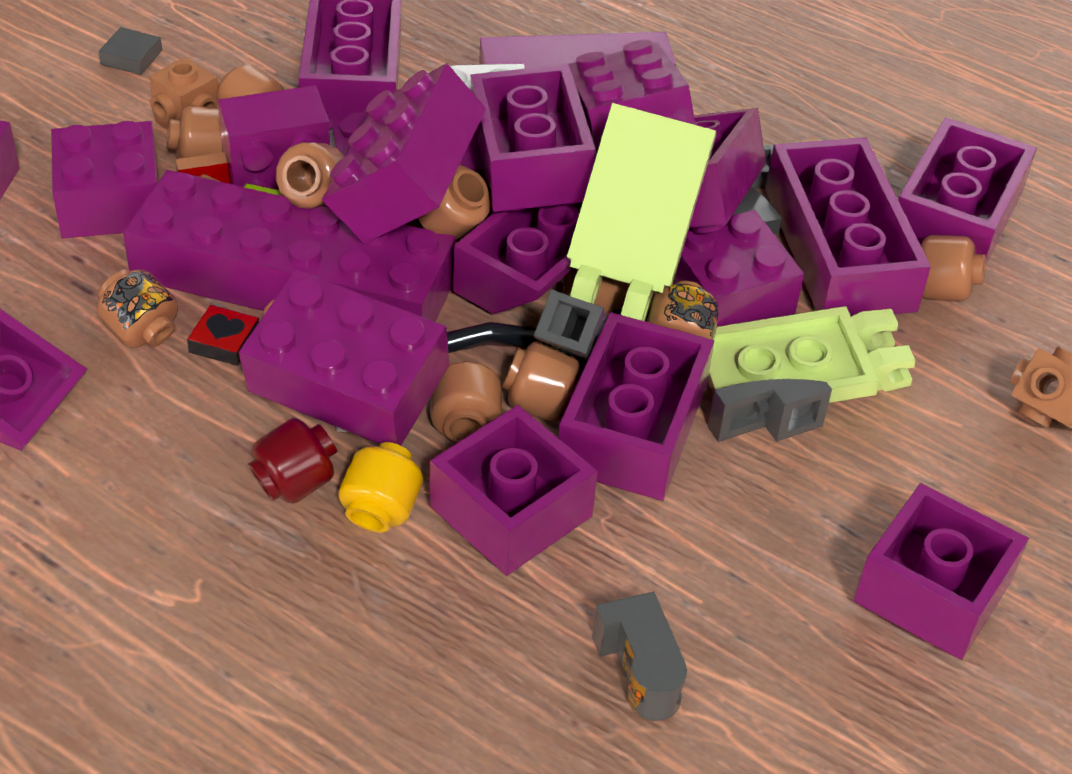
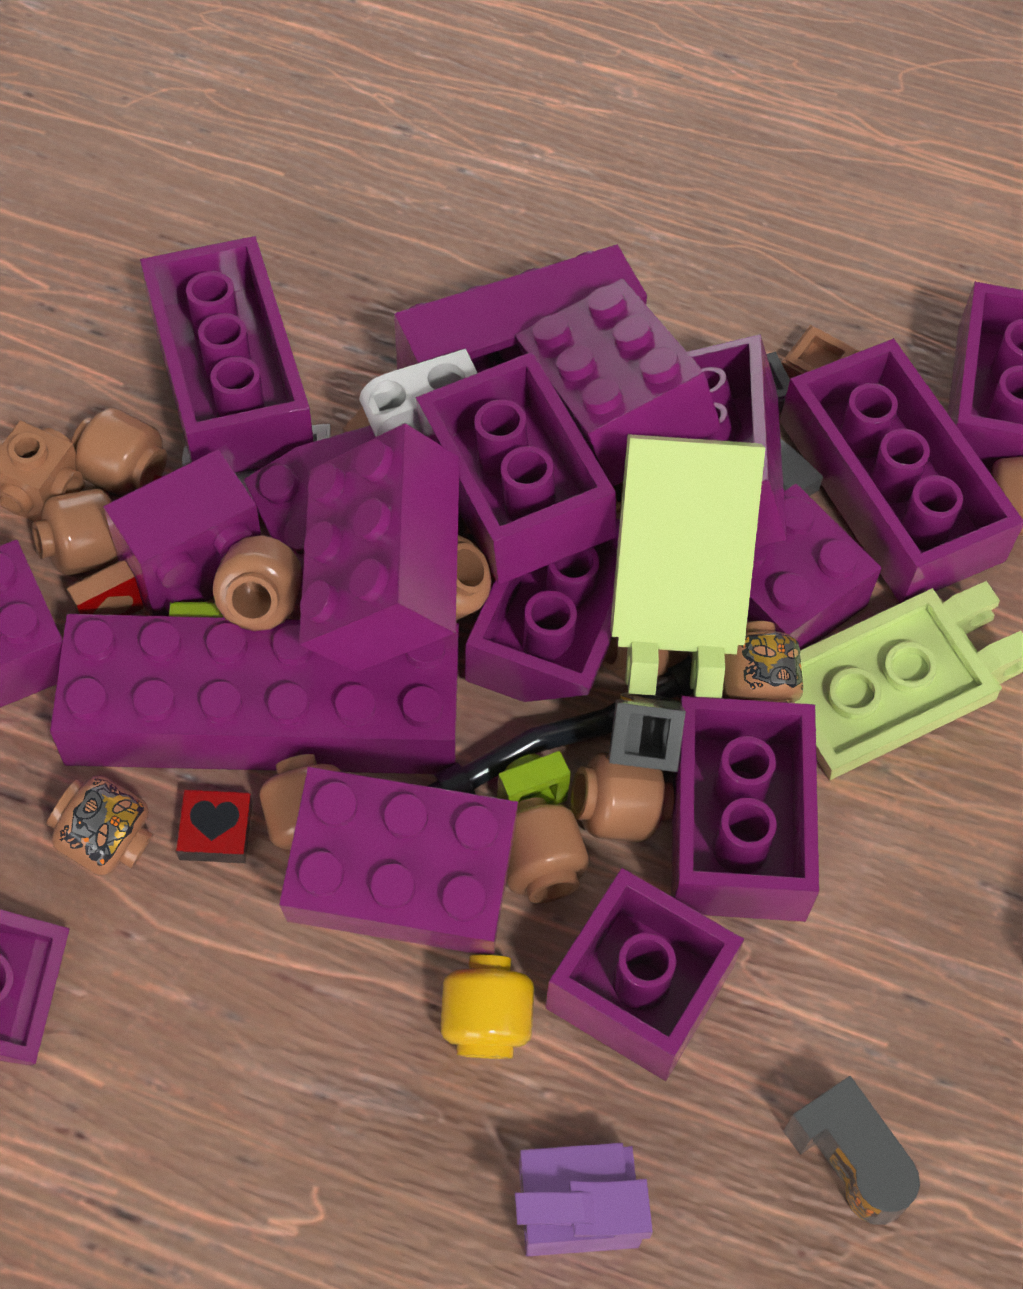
camera: 15 degrees left, 15 degrees up
(293, 460) = (372, 1001): dark red head -> none
(400, 629) = (581, 1200): none -> medium lavender piece
(479, 348) = (535, 778): none -> lime plate
(780, 405) = (896, 755): dark grey slope -> none

